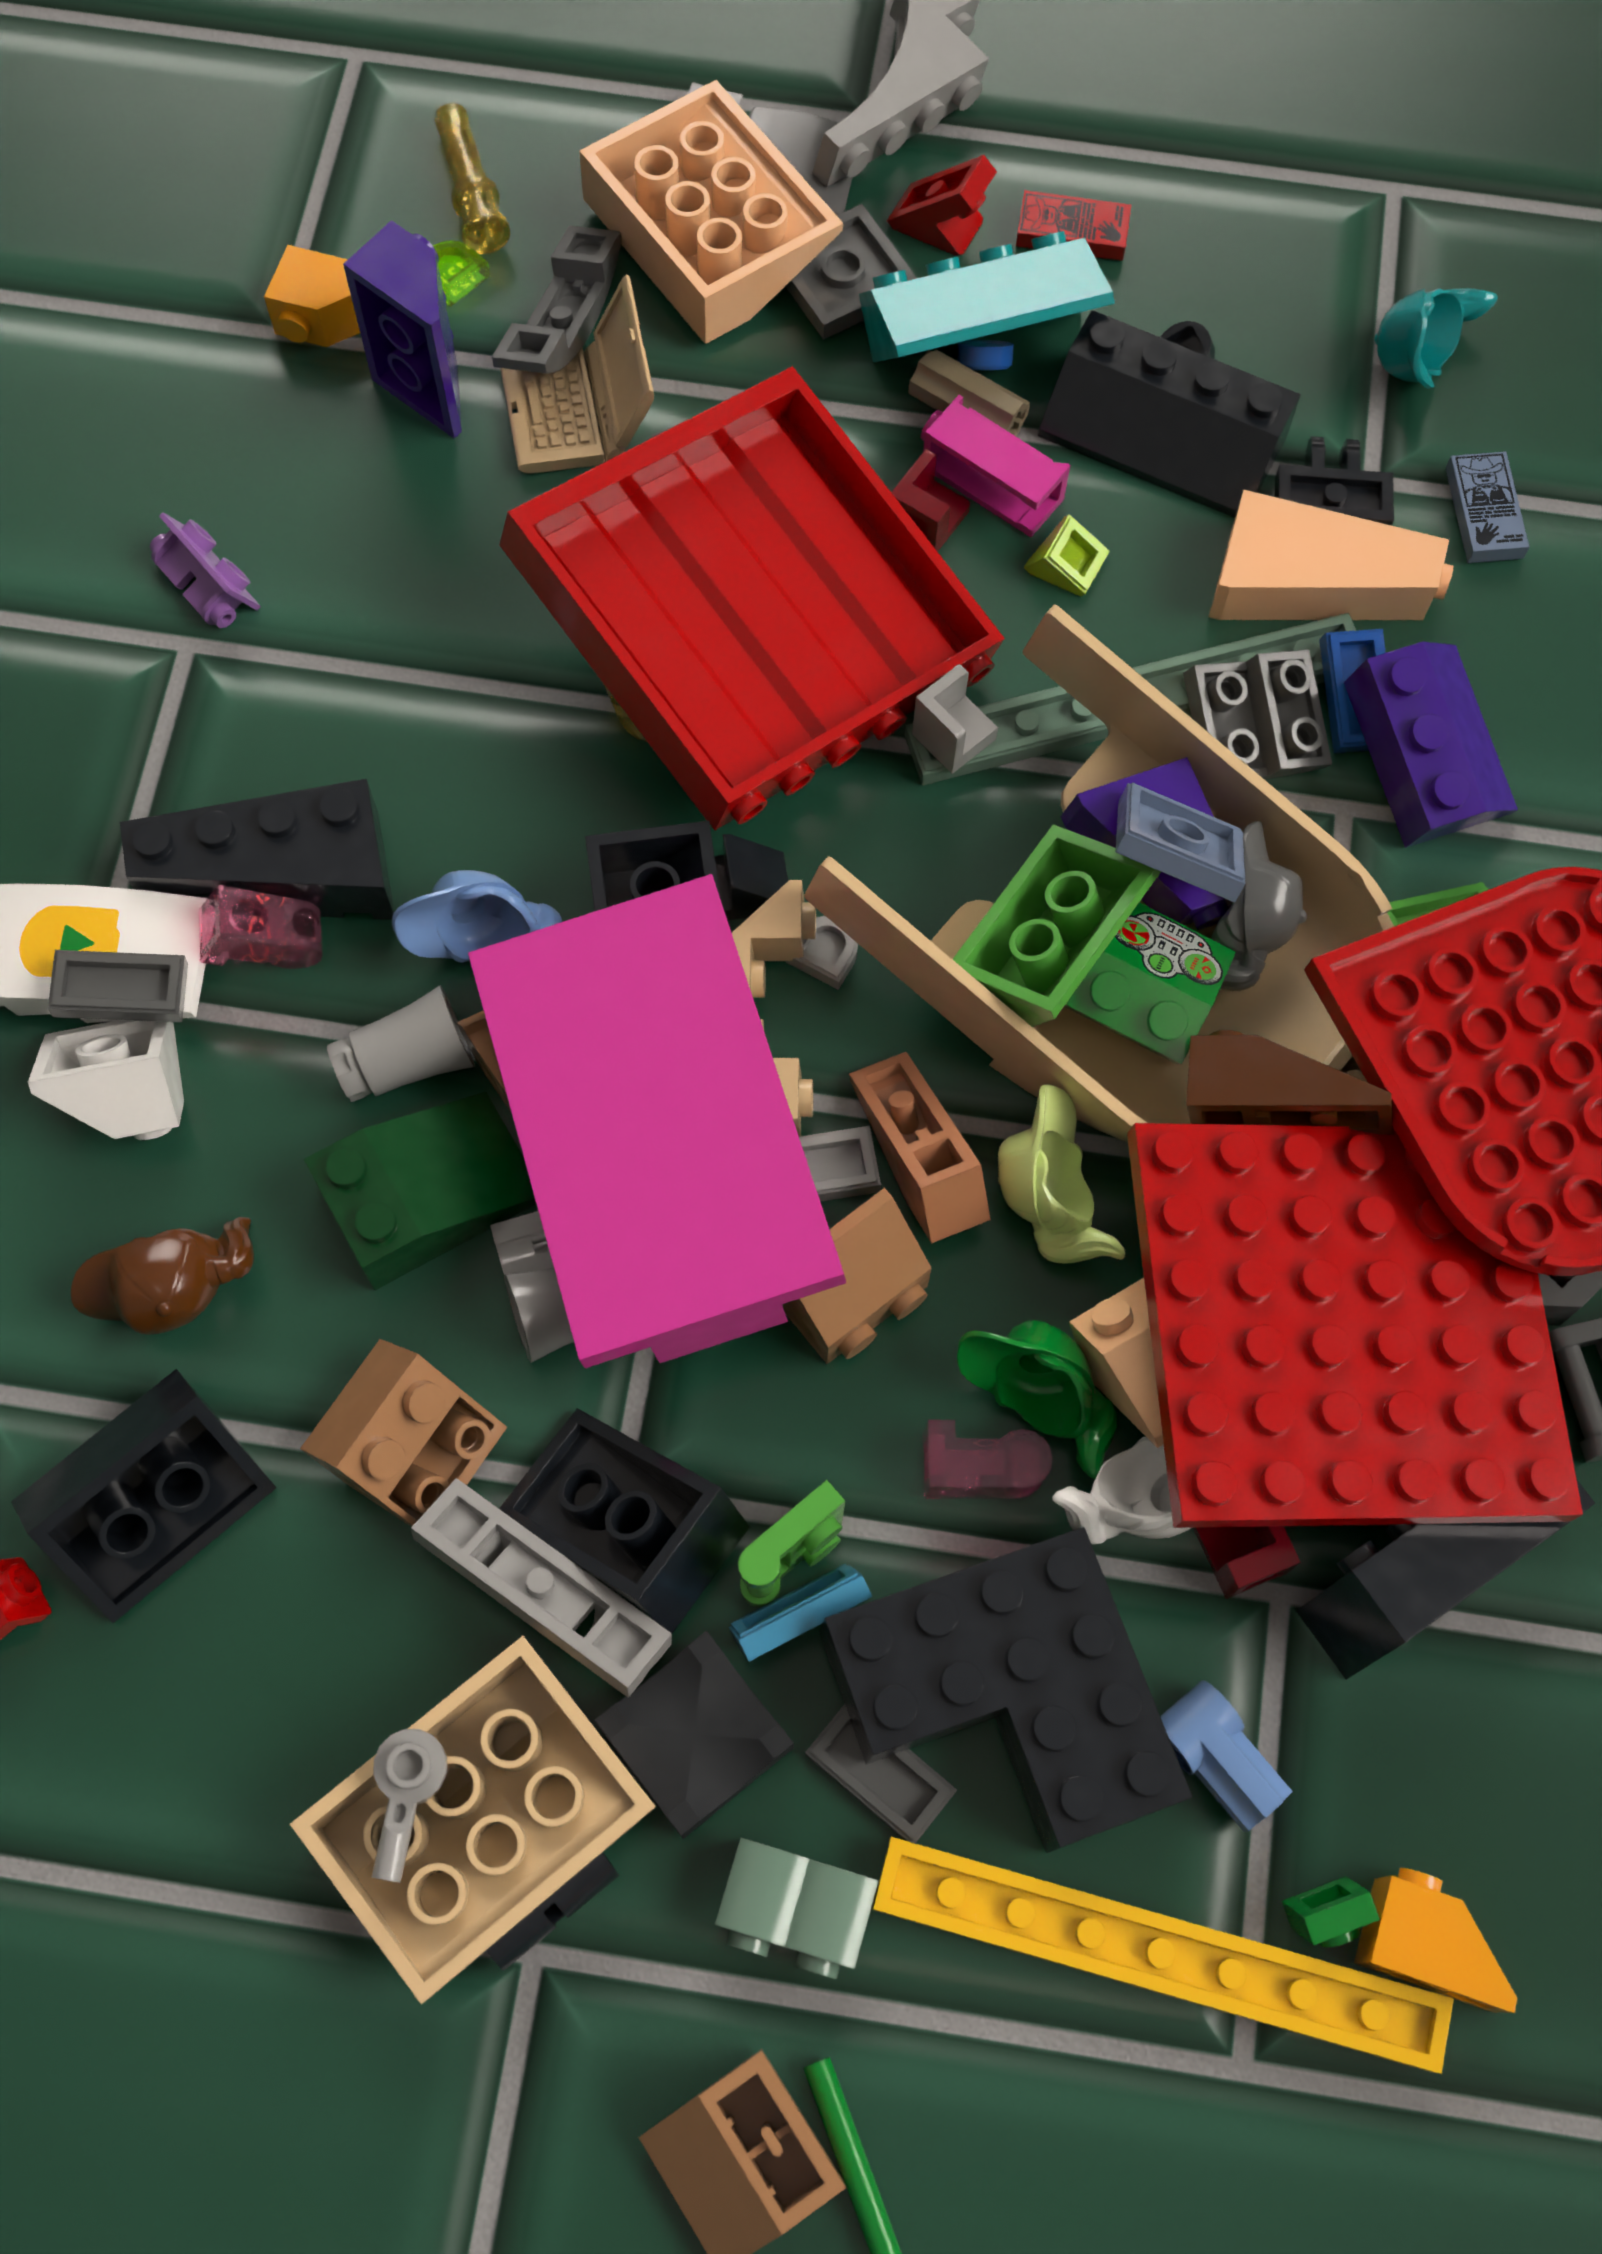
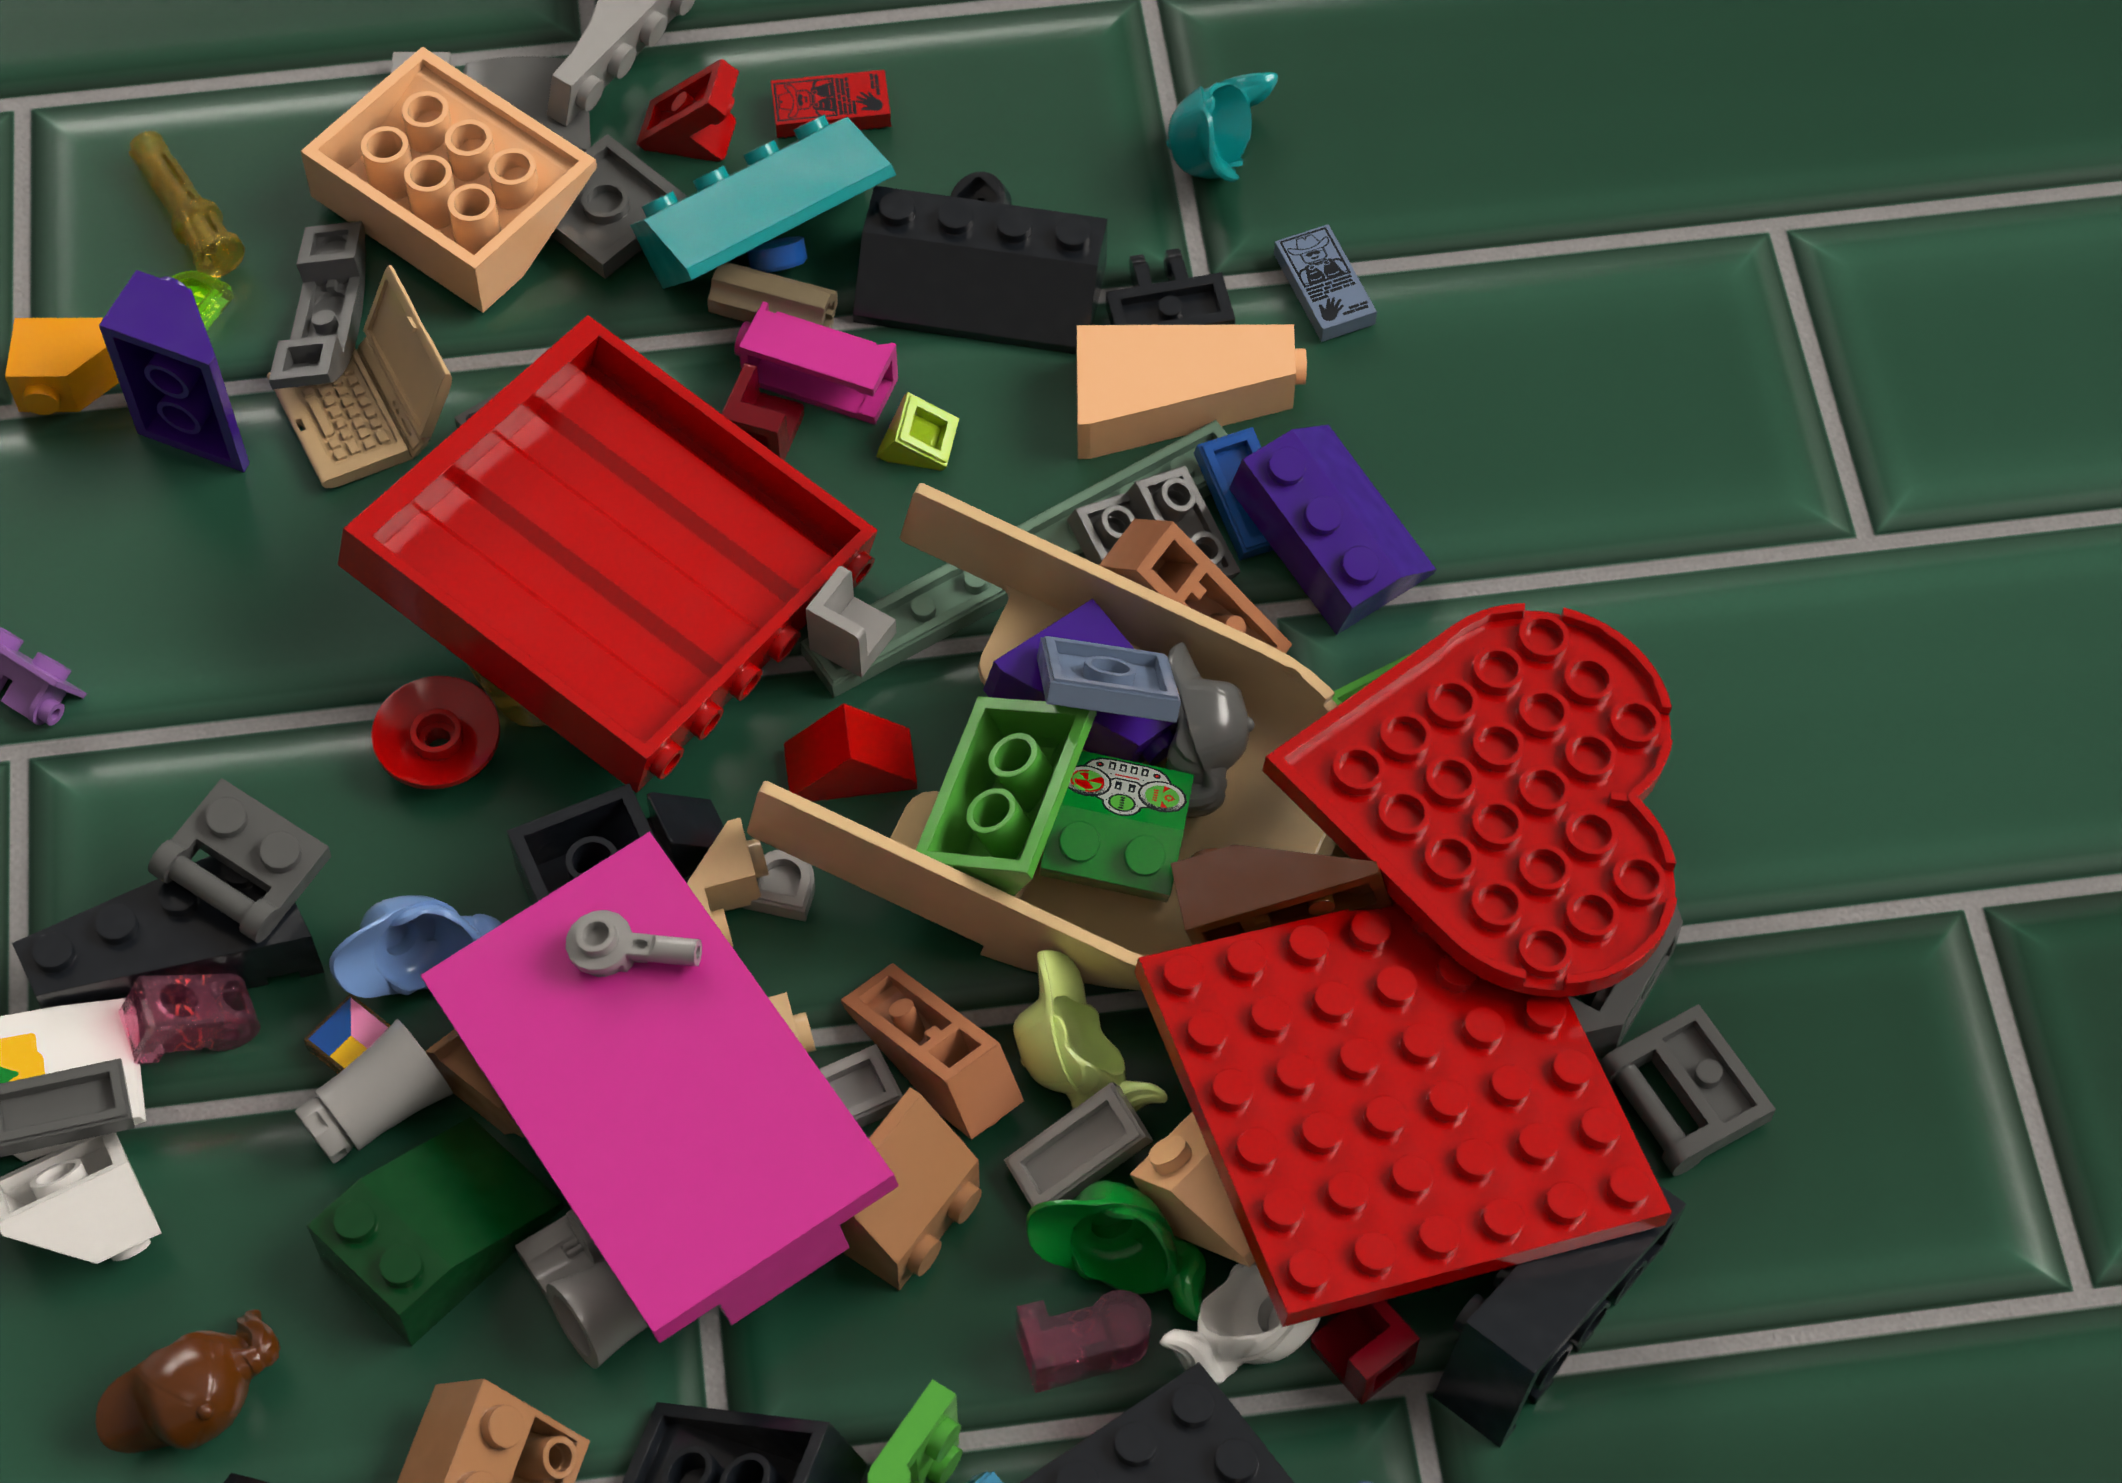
camera: 15 degrees left, 10 degrees down
(352, 786) = (253, 844): none -> dark grey plate
(396, 983) = (345, 1034): none -> tile
(546, 704) = (432, 711): none -> red dish
(640, 973) = (605, 945): none -> light grey plate
(920, 846) = (850, 756): none -> red slope
(1028, 1281) = (1079, 1148): none -> light grey tile
(1271, 744) = (1171, 564): none -> nougat slope

